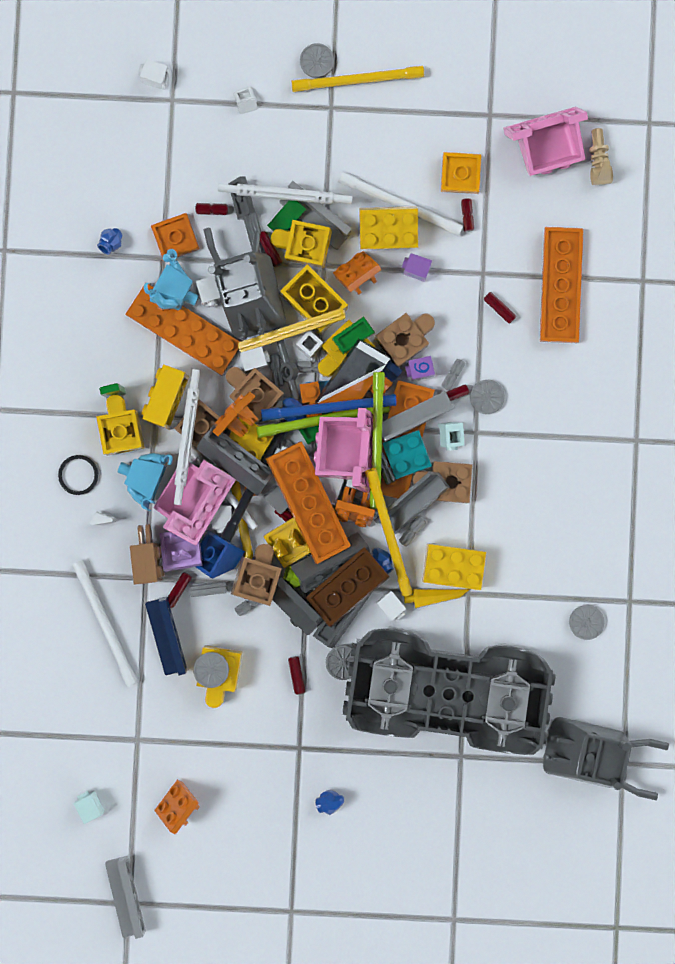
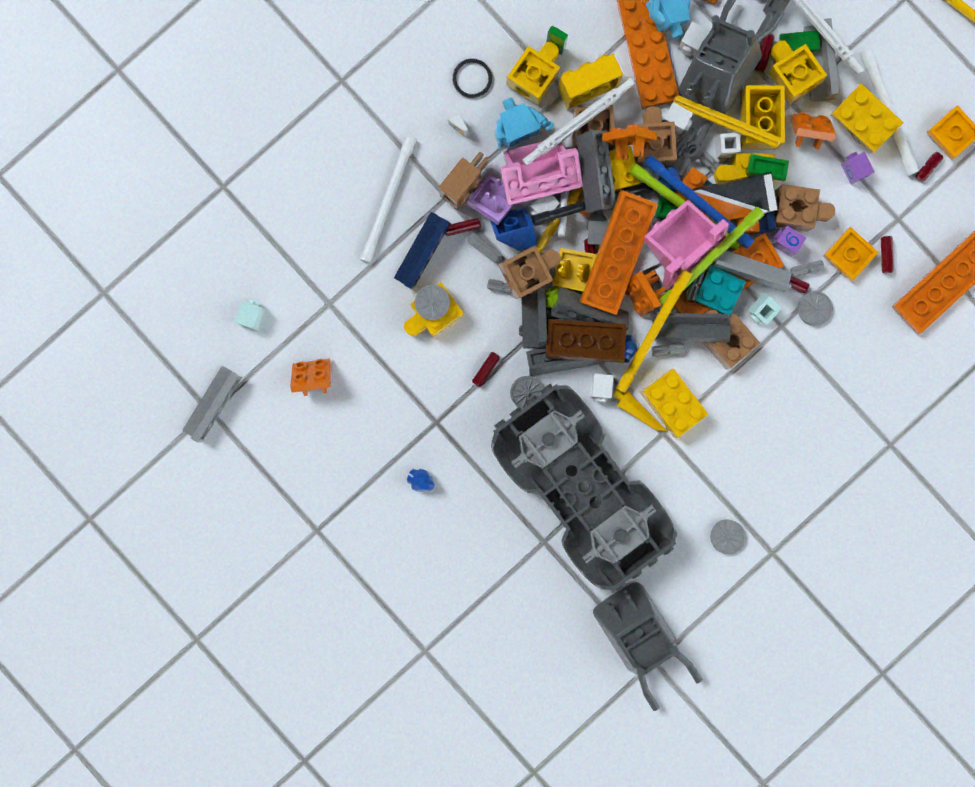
camera: 40 degrees right, 0 degrees up
(473, 333) = (850, 254): none -> light orange plate

